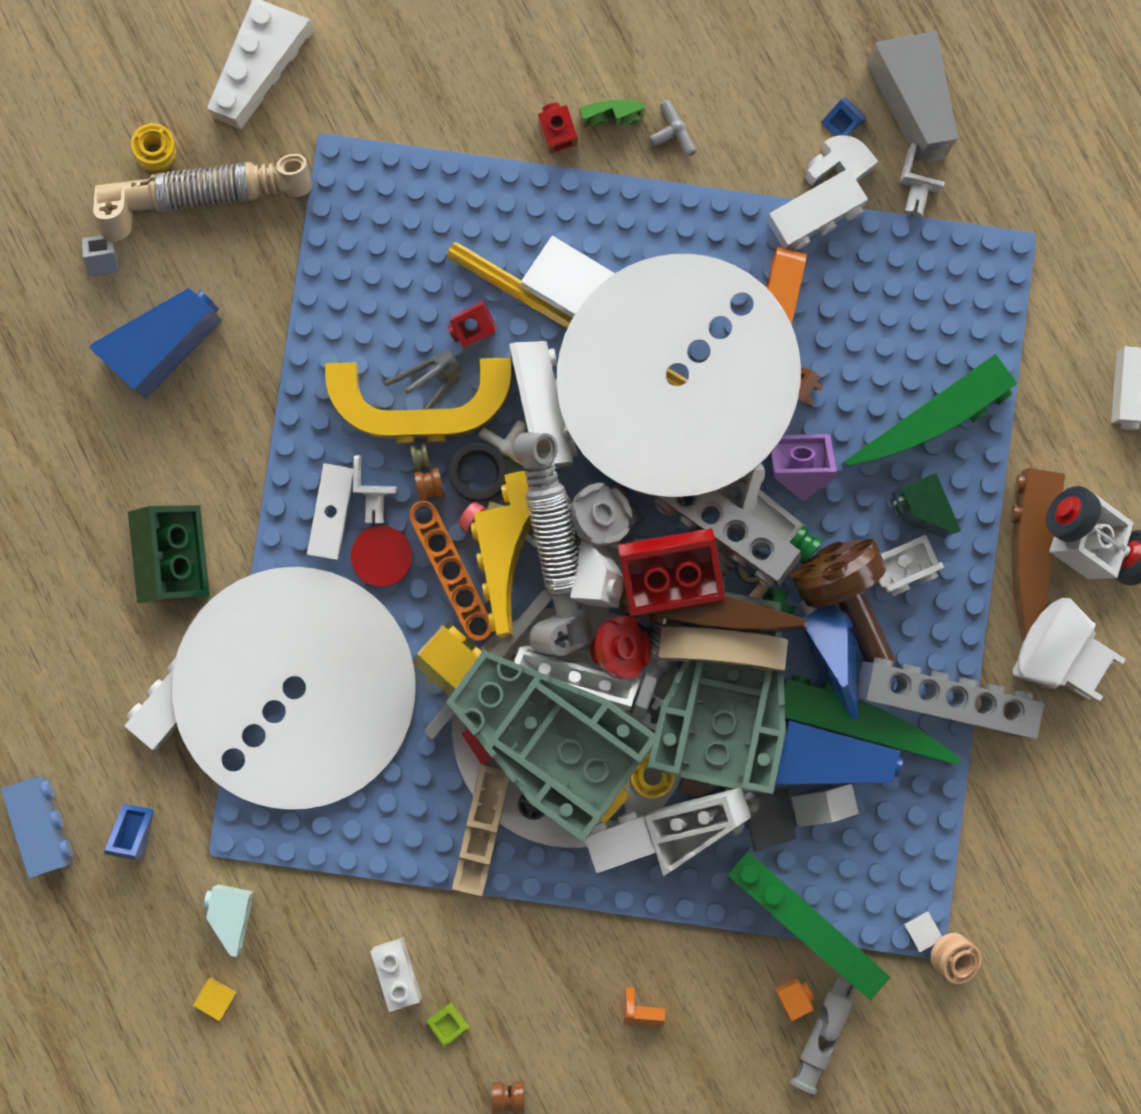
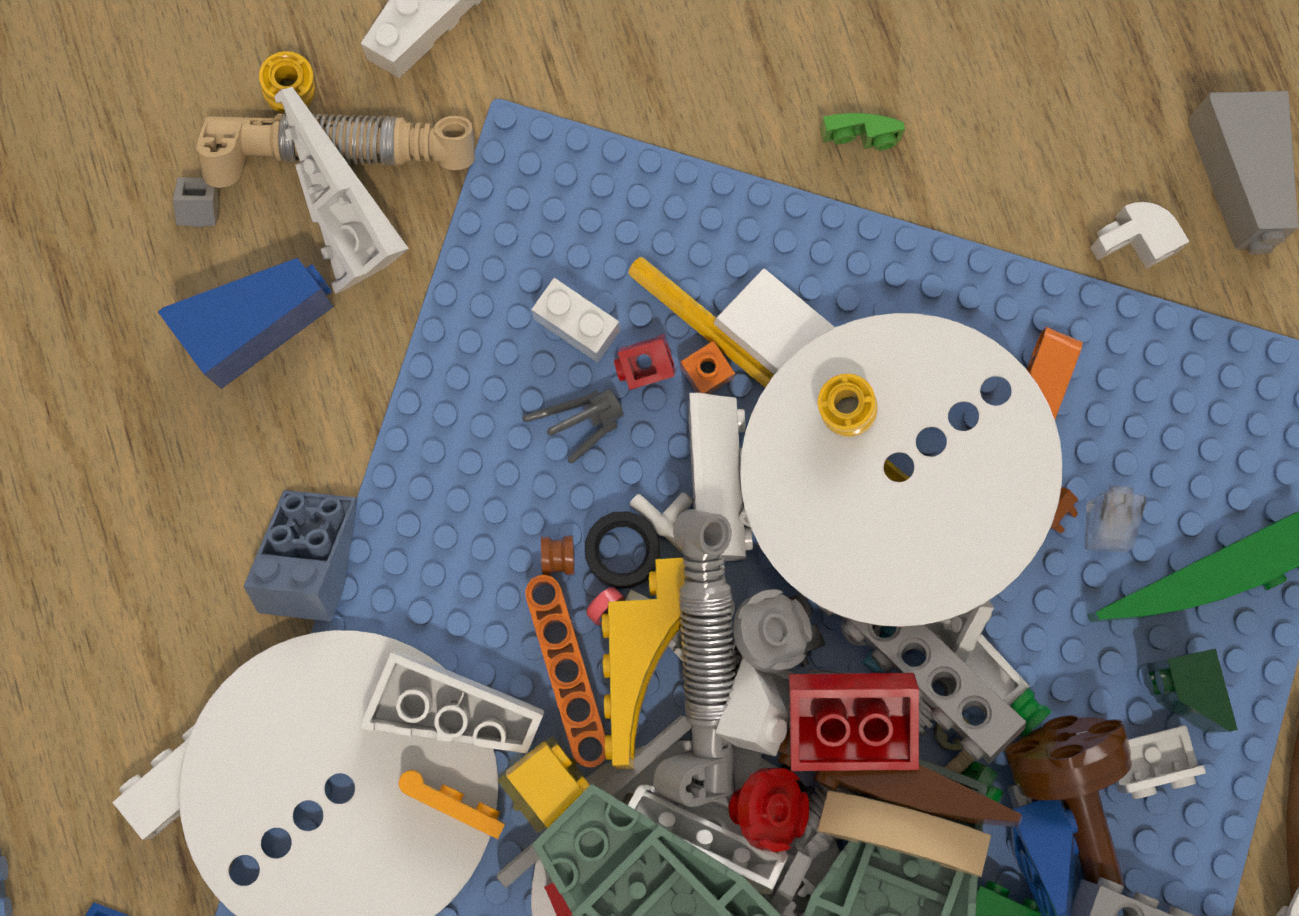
camera: 10 degrees right, 5 degrees down
(168, 553) = (205, 589): dark green slope -> none
(226, 254) = (353, 226): none -> white wedge
(235, 517) = (303, 556): none -> sand blue slope
(333, 492) = (433, 545): white tile -> none
(358, 611) = (447, 707): none -> white wedge
(374, 494) = (484, 555): white bracket -> none
(379, 683) = (450, 802): none -> light orange plate
(381, 556) = (481, 637): red tile -> none
(413, 300) = (575, 320): none -> white brick
(420, 457) = (552, 519): olive bush -> none
(433, 424) = (543, 475): yellow arch -> none
(524, 332) = (707, 382): none -> orange plate
(561, 137) = (789, 149): red brick -> none
(620, 323) = (843, 387): none -> yellow wheel
(676, 128) = (938, 162): light grey piece -> none
(804, 463) = (1043, 608): medium lavender slope -> none
(817, 210) = (1104, 290): white brick -> none
(843, 118) = (1150, 183): blue slope -> none
(849, 388) = (1114, 520): none -> clear slope
(919, 186) = (1235, 279): white bracket -> none

